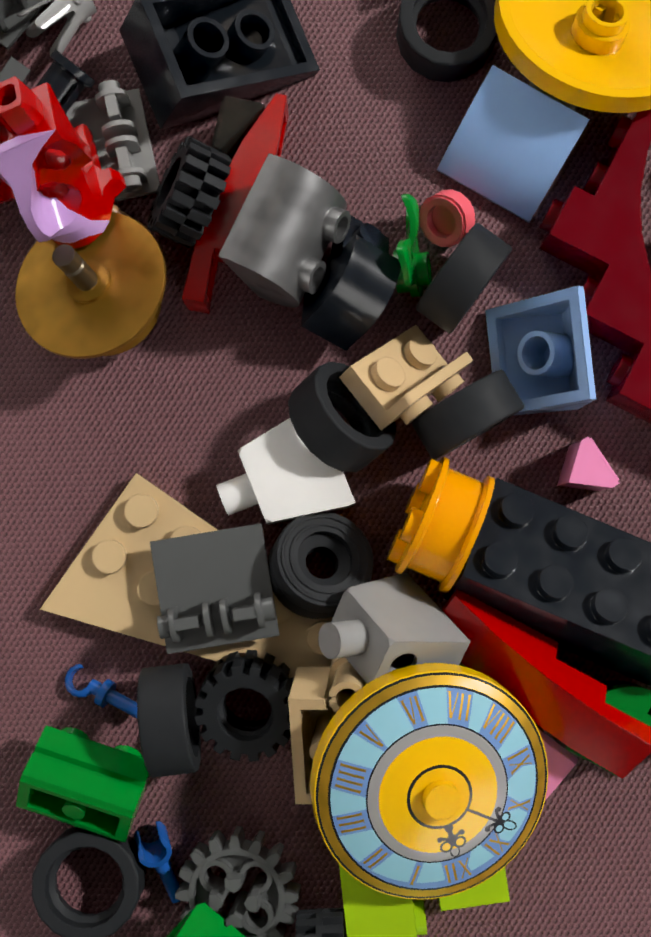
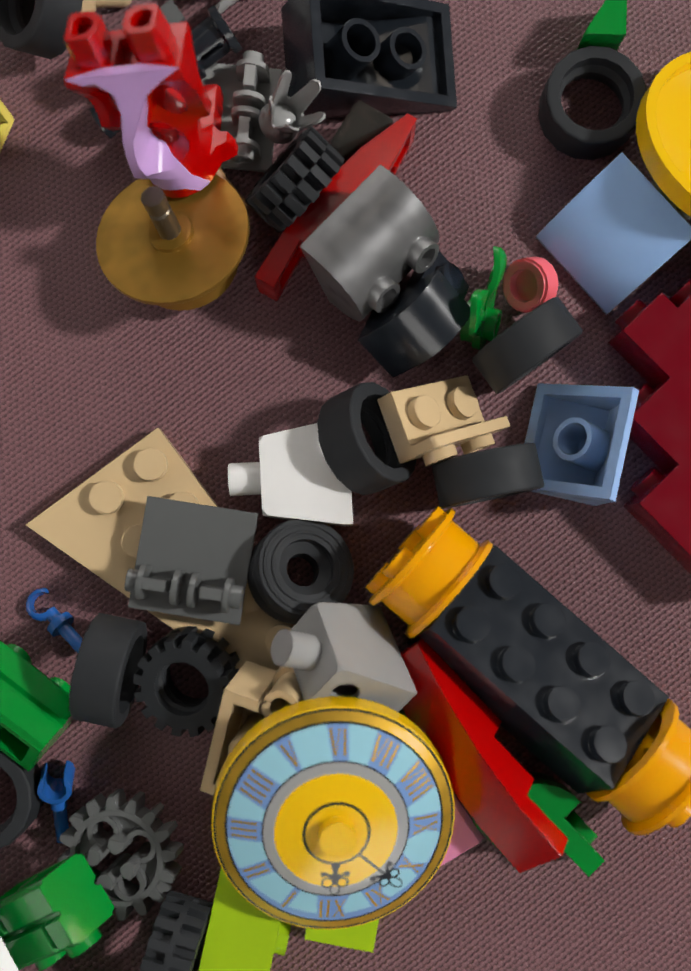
camera: 20 degrees right, 0 degrees up
(158, 134) = (284, 115): none -> light grey piece
(586, 468) = (584, 564): bright pink slope -> none

